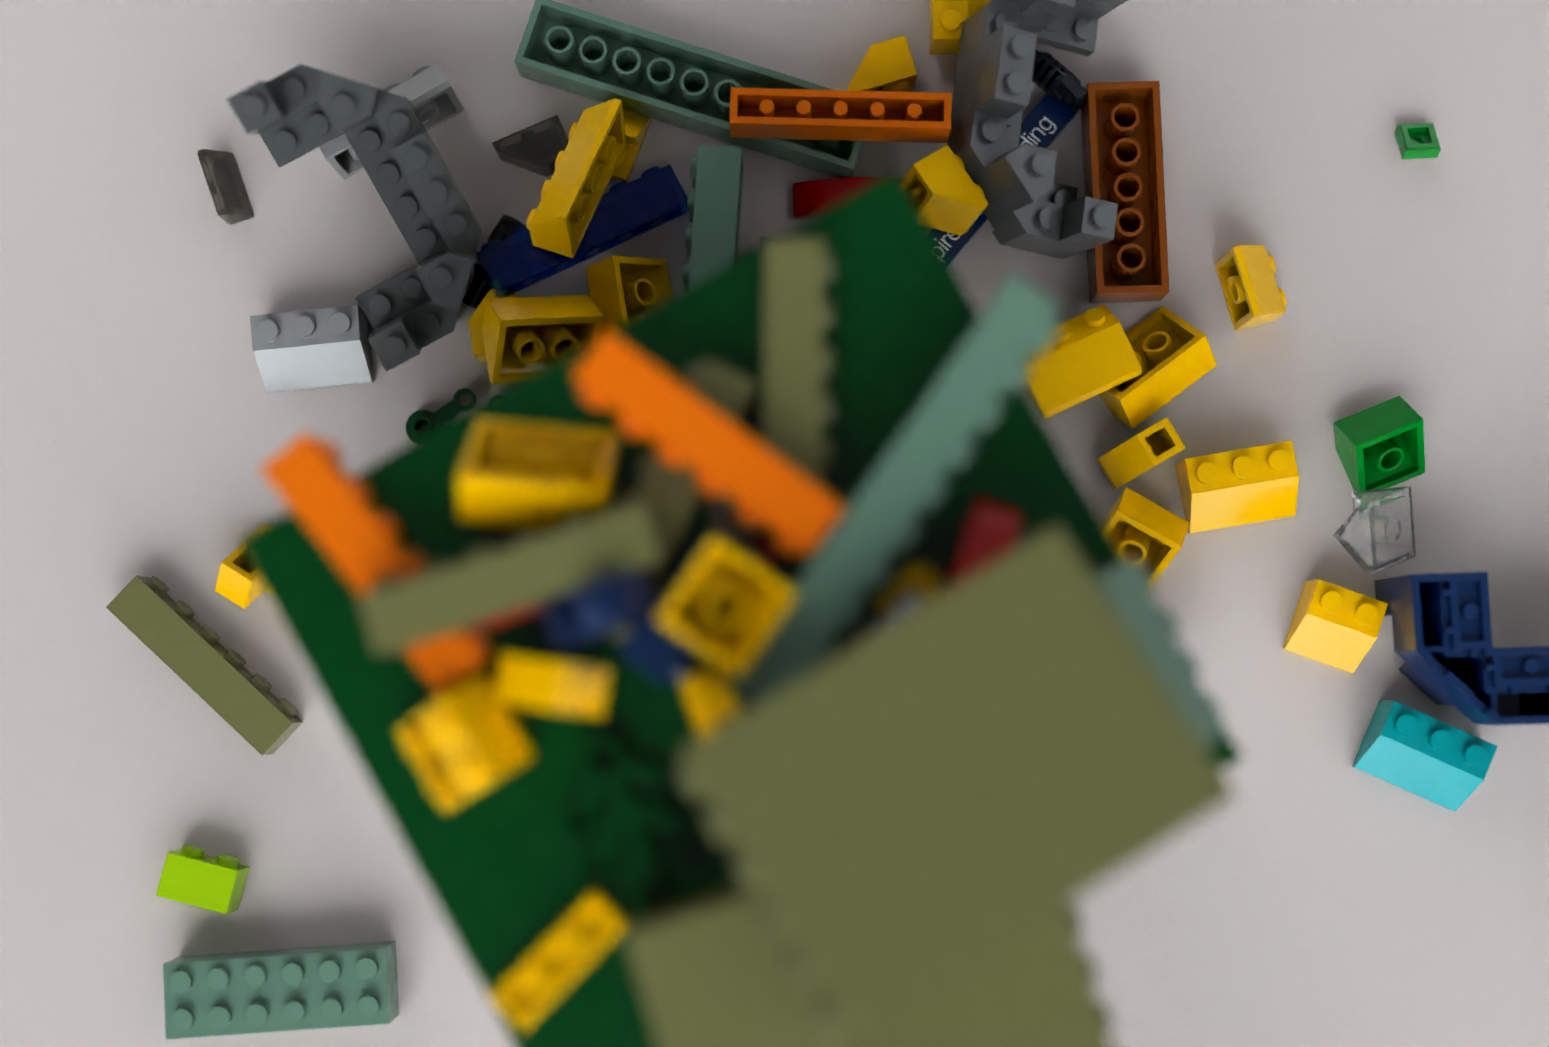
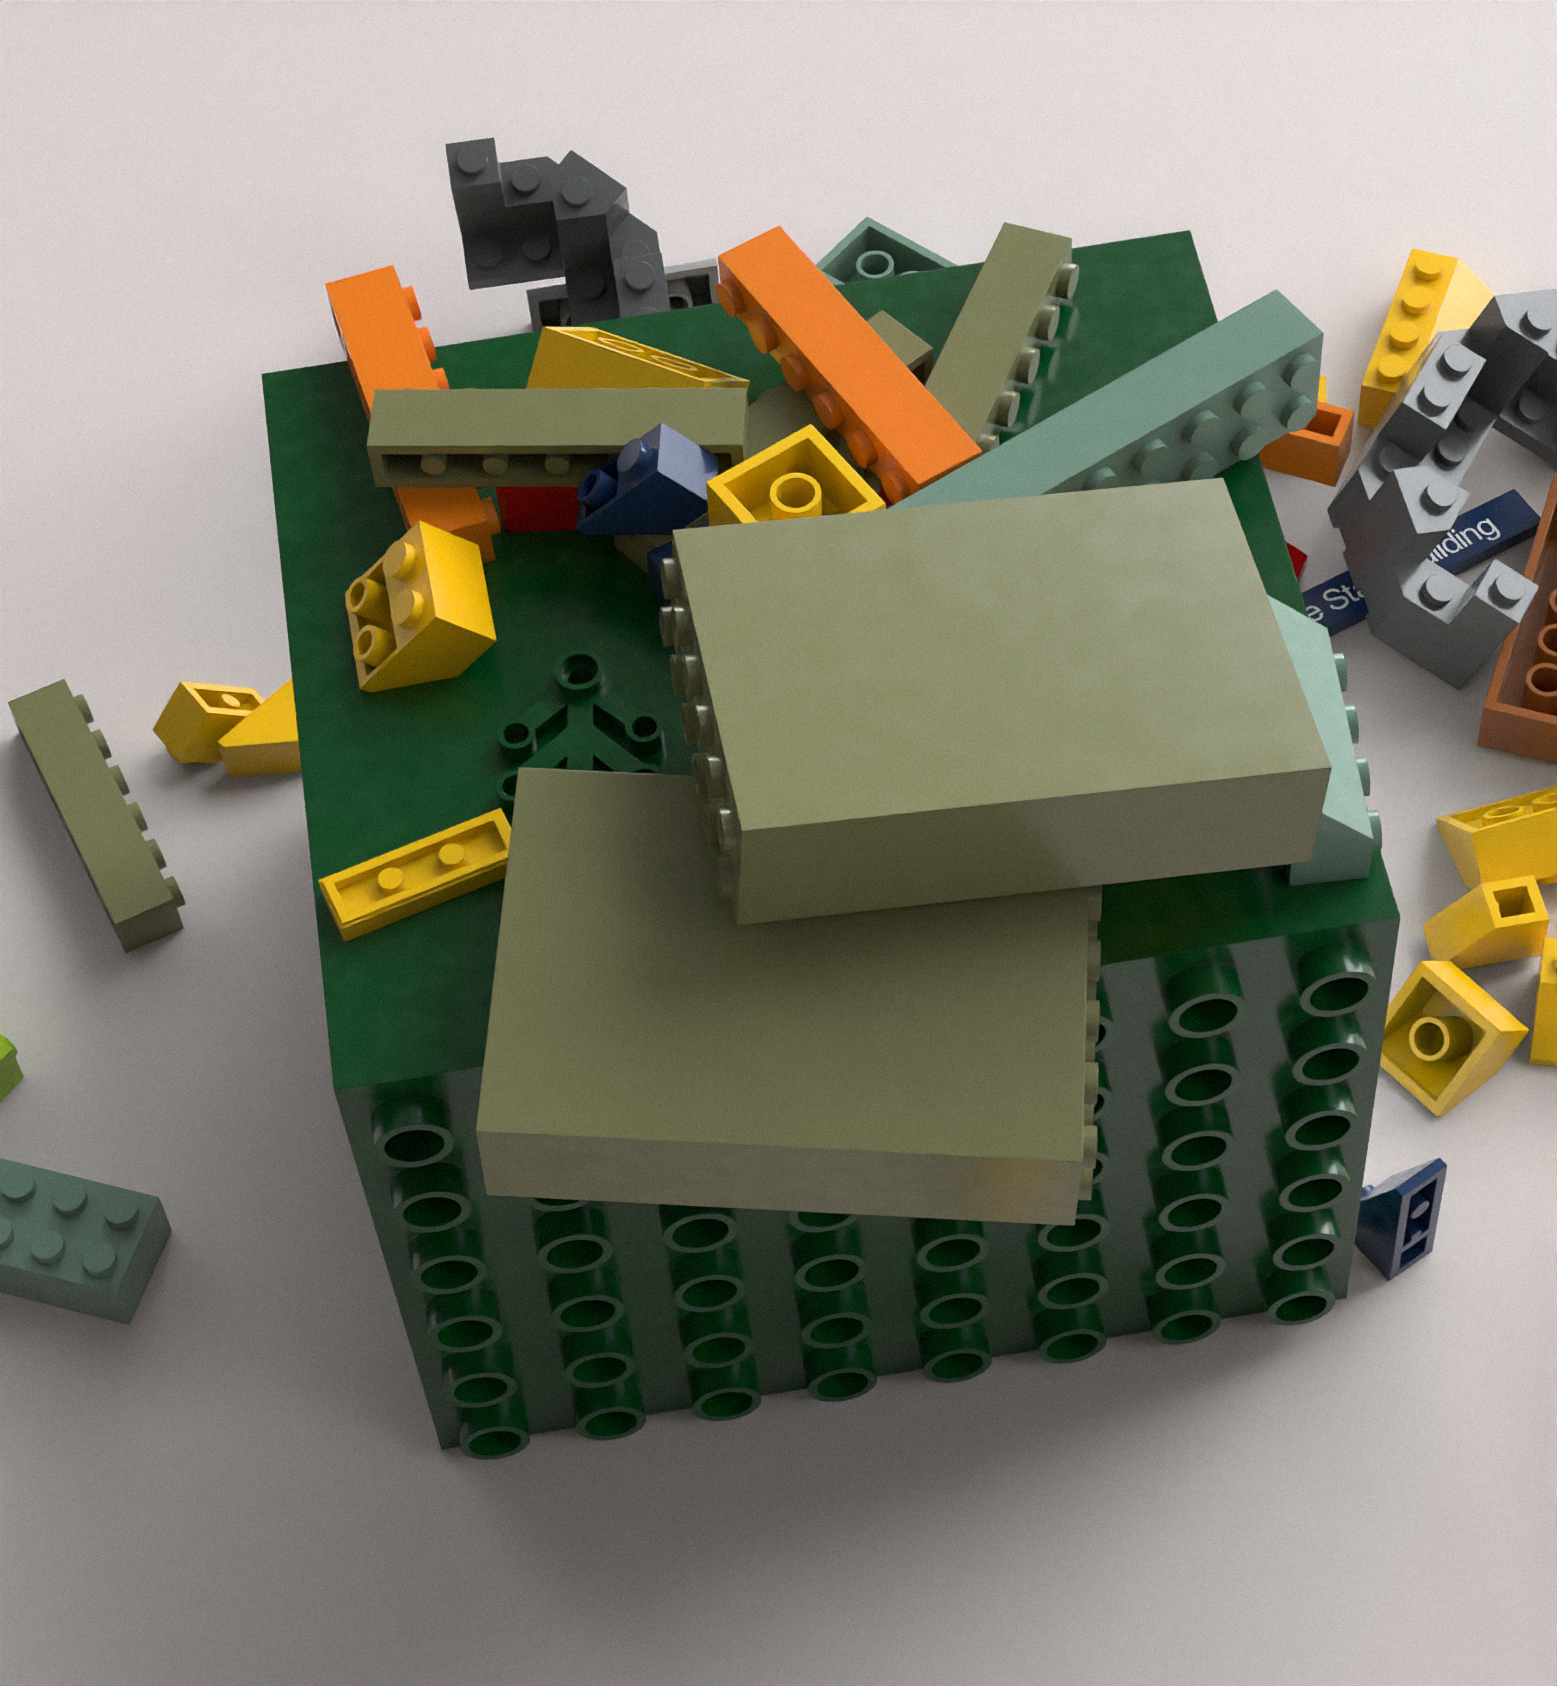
camera: 20 degrees right, 30 degrees down
(551, 685) = (554, 572): yellow slope -> none
(944, 192) = (1317, 536): yellow slope -> none
(1058, 81) = (1513, 474): black hinge -> none
(1080, 362) = (1438, 778): yellow slope -> none

